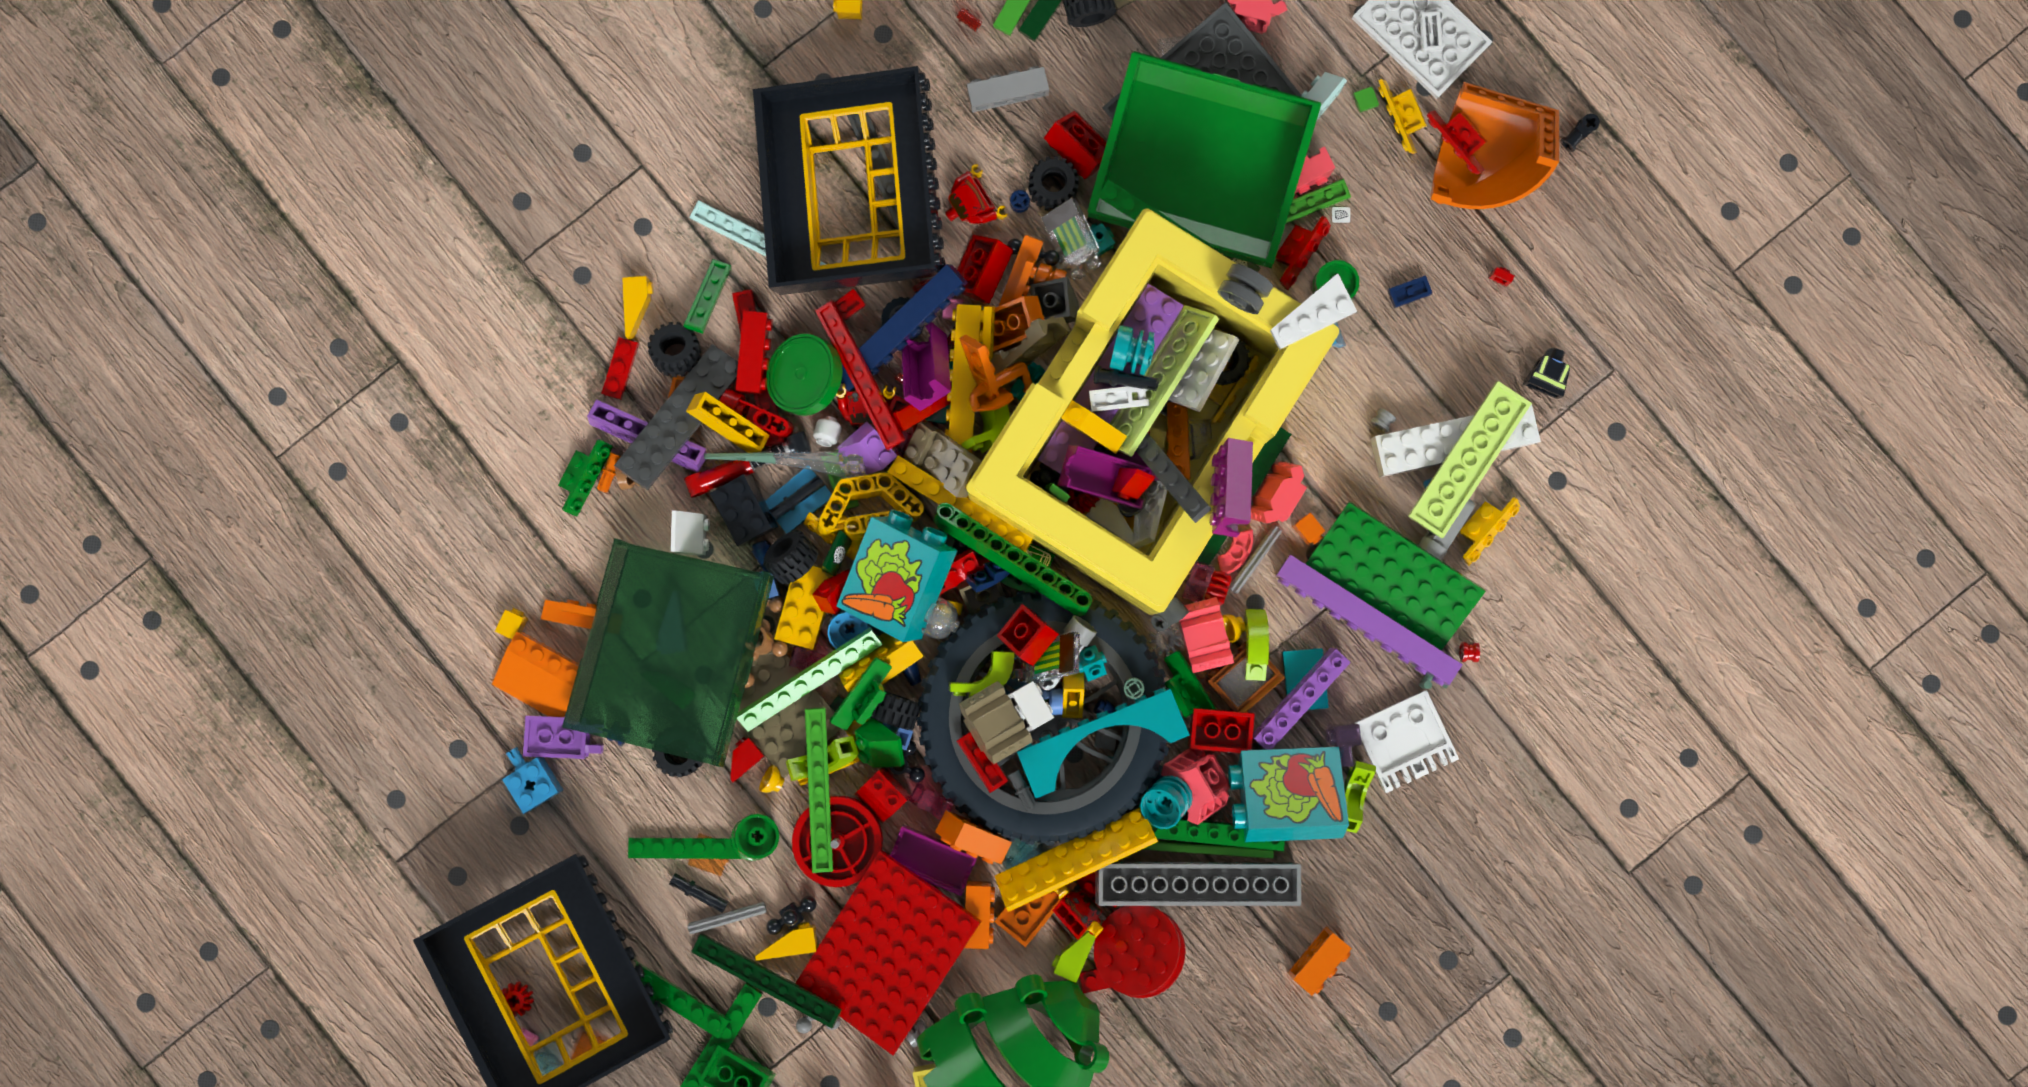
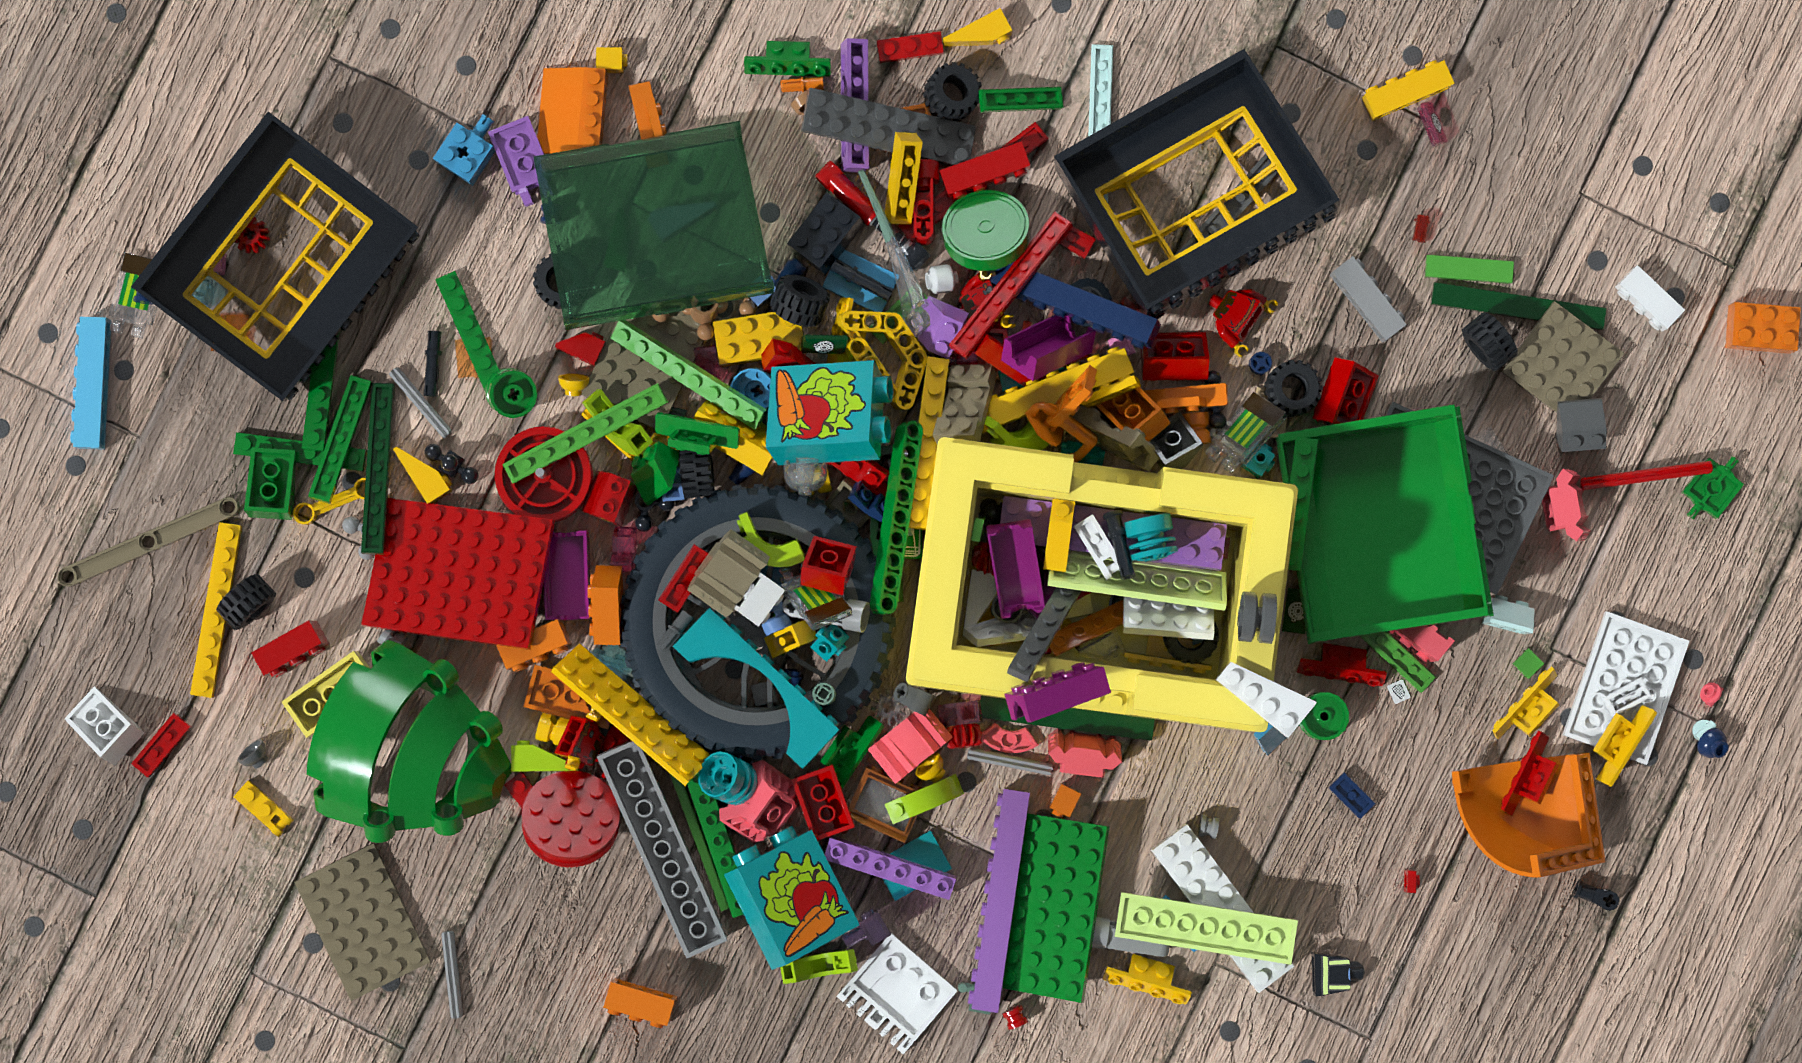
camera: 70 degrees right, 0 degrees up
(689, 533) = (778, 191): white slope -> none
(727, 1002) = (340, 439): none -> green plate
(776, 1034) = (338, 500): none -> yellow piece
(1054, 932) = (550, 728): none -> yellow wheel
(1131, 483) = (1021, 597): red slope -> none
(1466, 52) = (1620, 742): none -> yellow bracket

